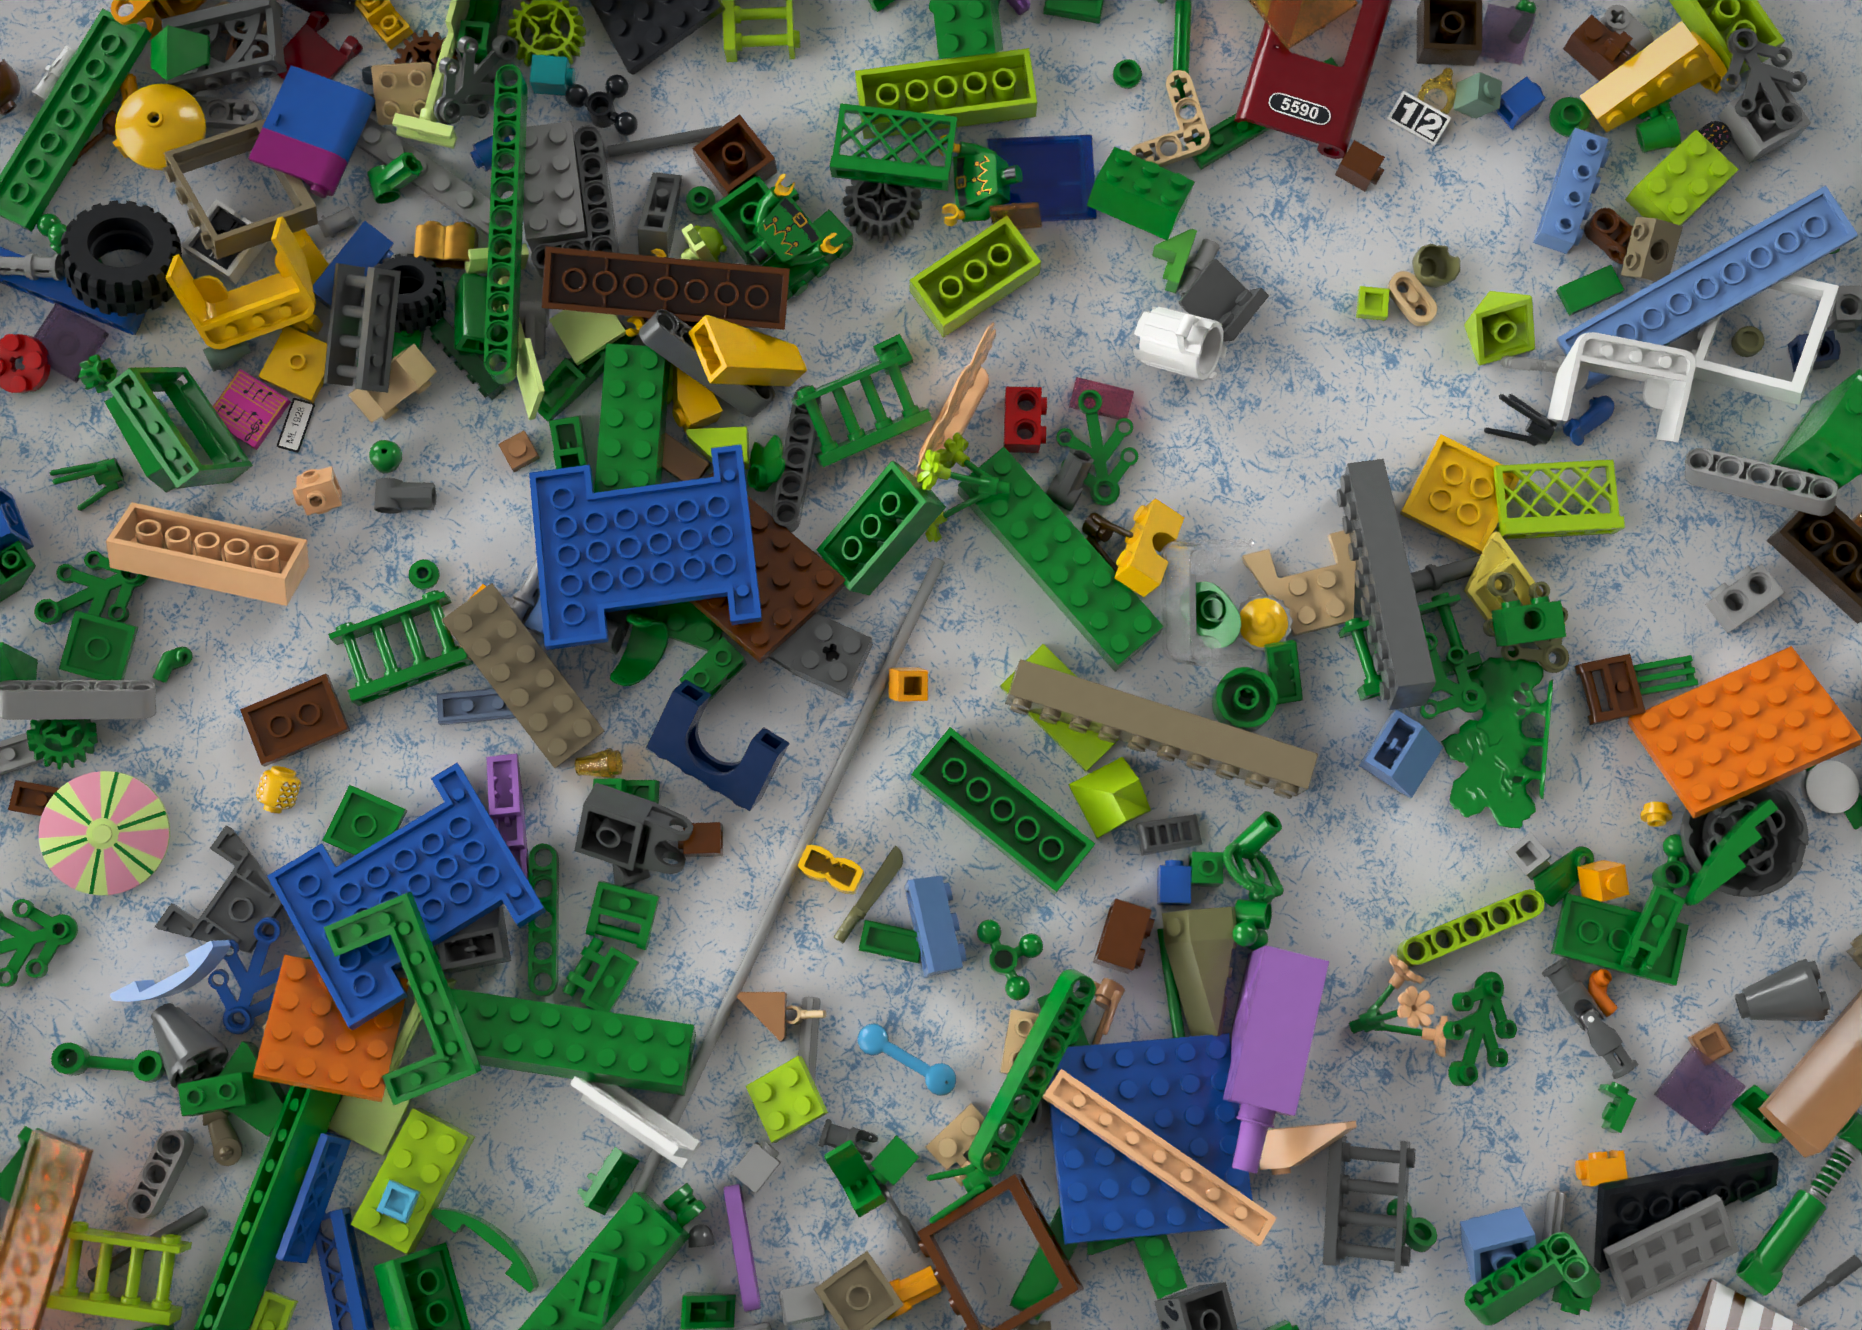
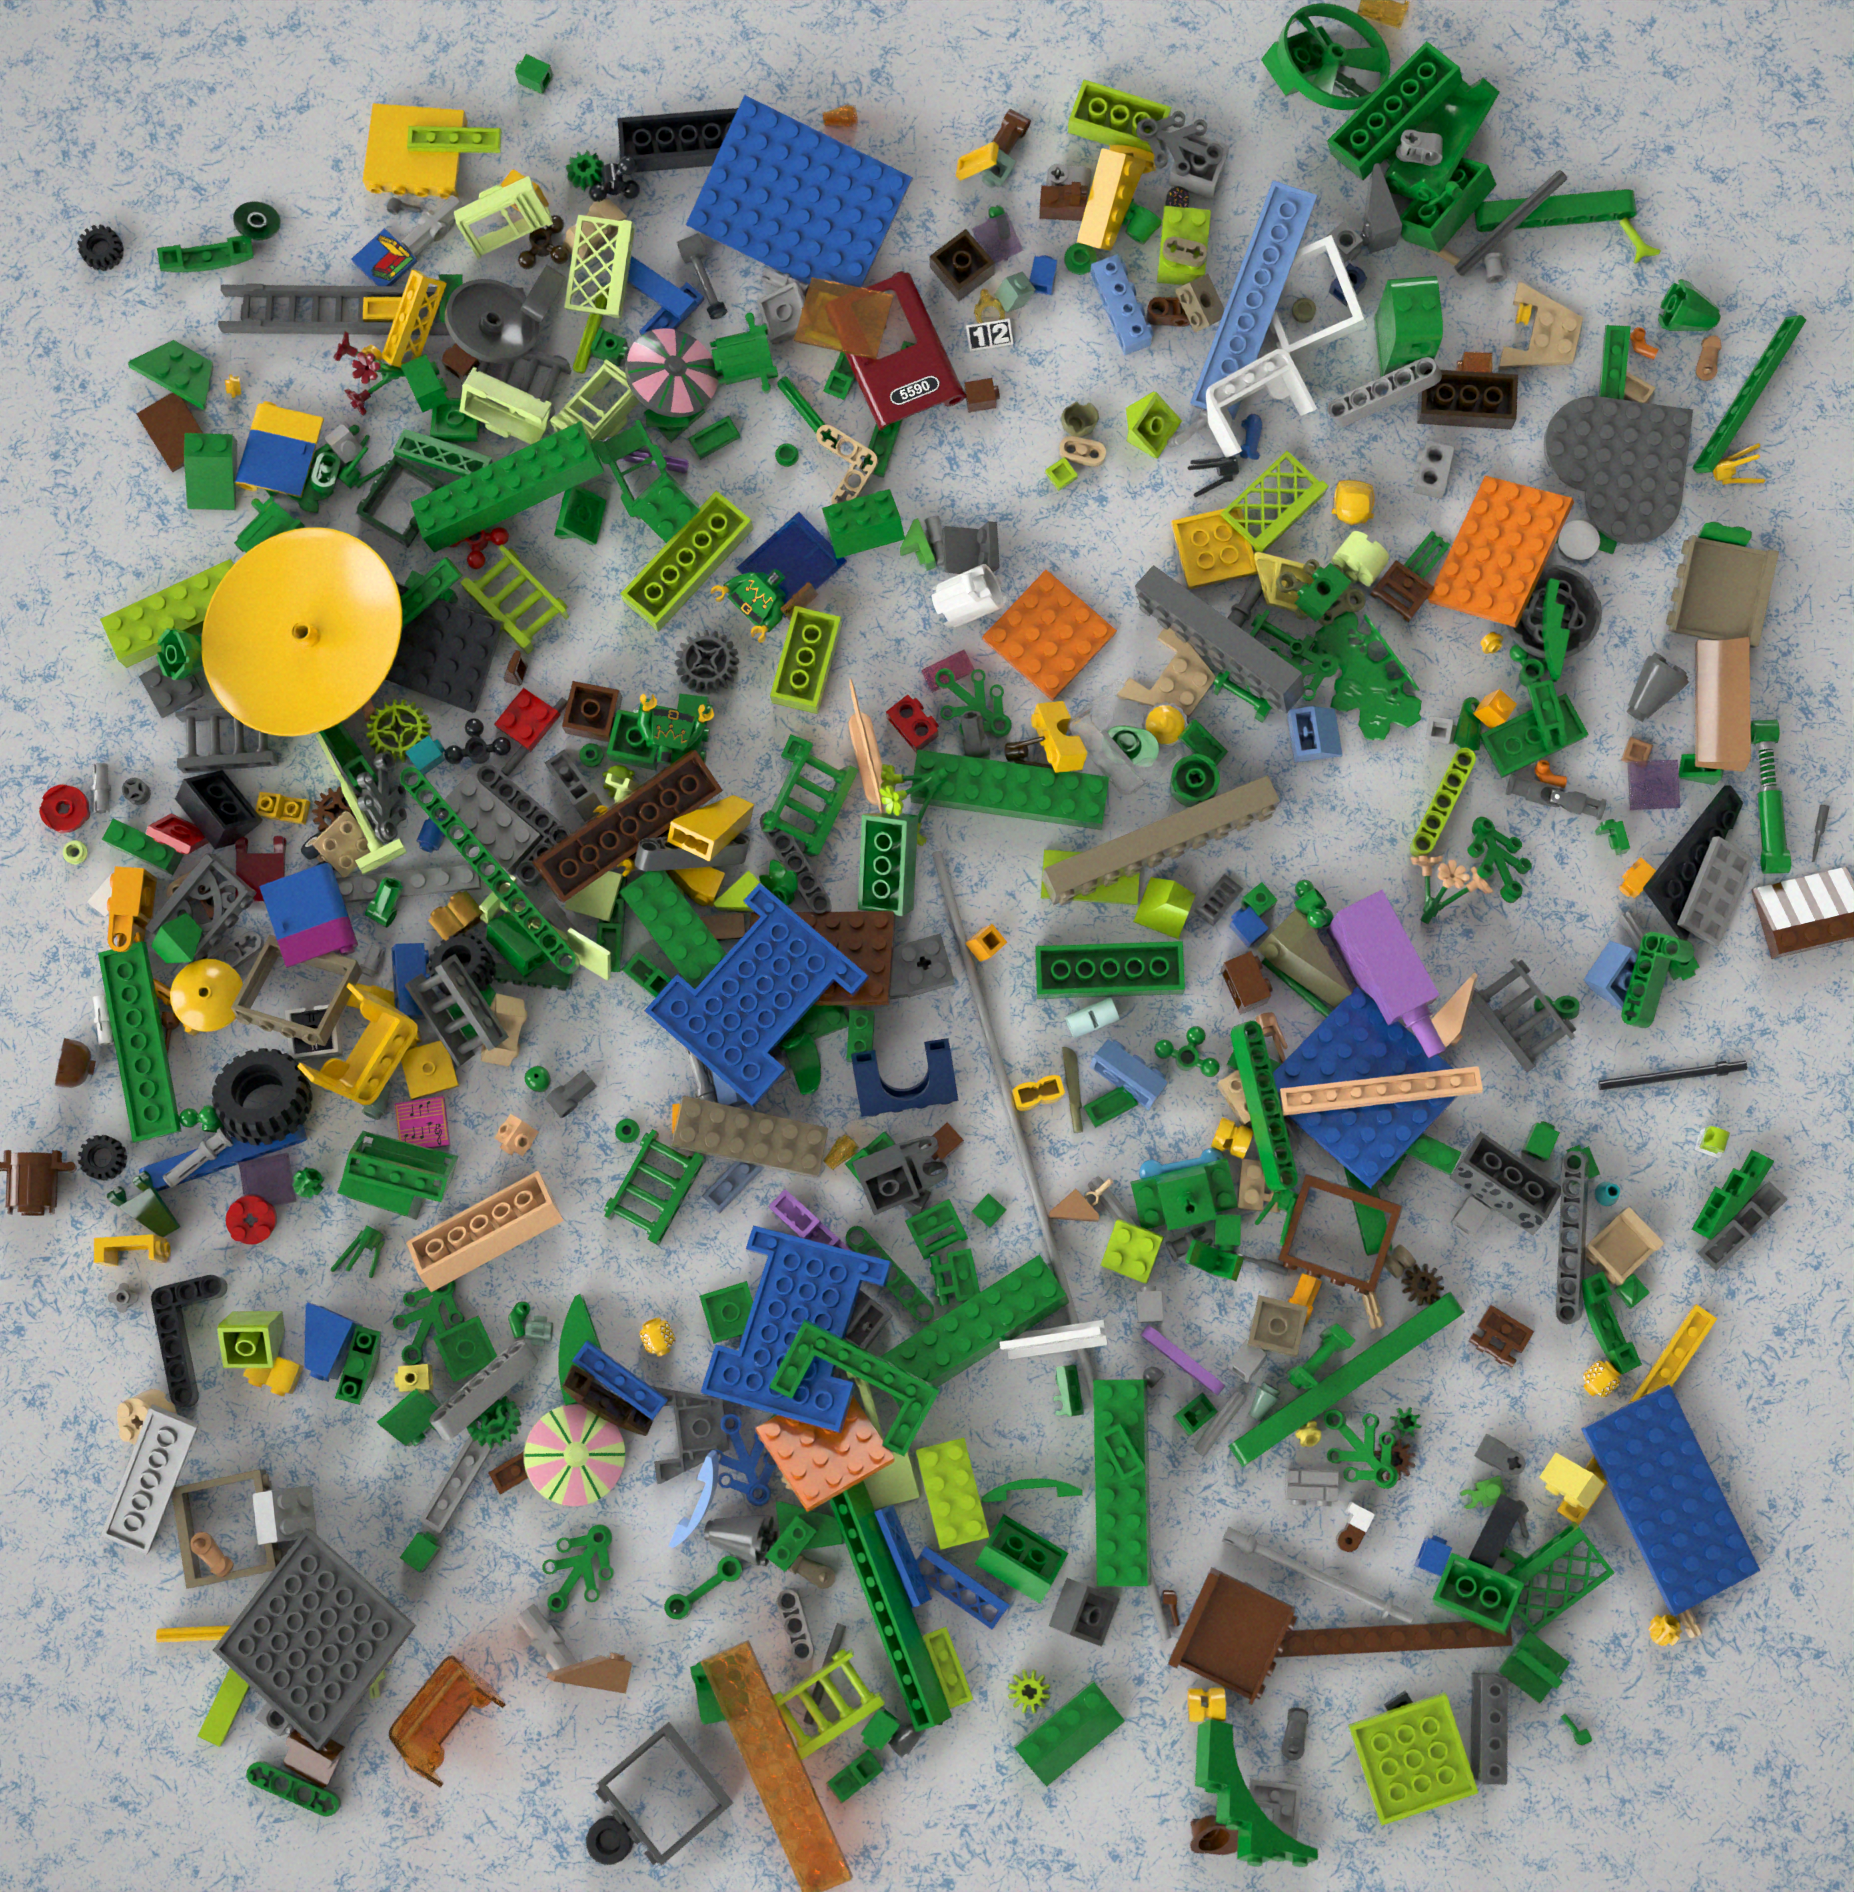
camera: 35 degrees left, 0 degrees up
(30, 635) = (413, 1377): none -> light yellow brick
(174, 810) = (604, 1403): none -> dark brown slope
(178, 689) = (539, 1330): none -> sand green gear
(195, 739) = (575, 1332): none -> green slope
(205, 799) = (620, 1380): none -> blue tile
(295, 425) = (460, 1109): white sticker -> none
(295, 720) = (628, 1286): reddish brown plate -> none
(398, 1201) = (958, 1509): medium azure tile -> none
(518, 451) = (617, 1005): medium nougat plate -> none
(671, 119) = (527, 719): none -> red plate
(684, 1205) = (1126, 1365): green wheel -> none
(688, 941) = (989, 1210): none -> green plate
(701, 63) = (516, 669): none -> reddish brown slope
(883, 1090) = (1184, 1195): none -> green brick
(884, 169) = (696, 639): green fence -> none
(946, 842) = (1092, 1018): none -> light aqua pin
(978, 1074) = (1232, 1138): none -> yellow wheel
(1227, 445) = (1049, 635): none -> orange plate
(1239, 45) = (840, 379): none -> green slope
(1248, 846) = (1272, 866): green piece -> none
(1590, 290) = (1184, 356): green tile -> none
(1595, 623) = (1360, 558): none -> yellowish green brick
(1636, 563) = (1353, 502): none -> yellow helmet
(1677, 187) = (1184, 251): none -> dark tan beam

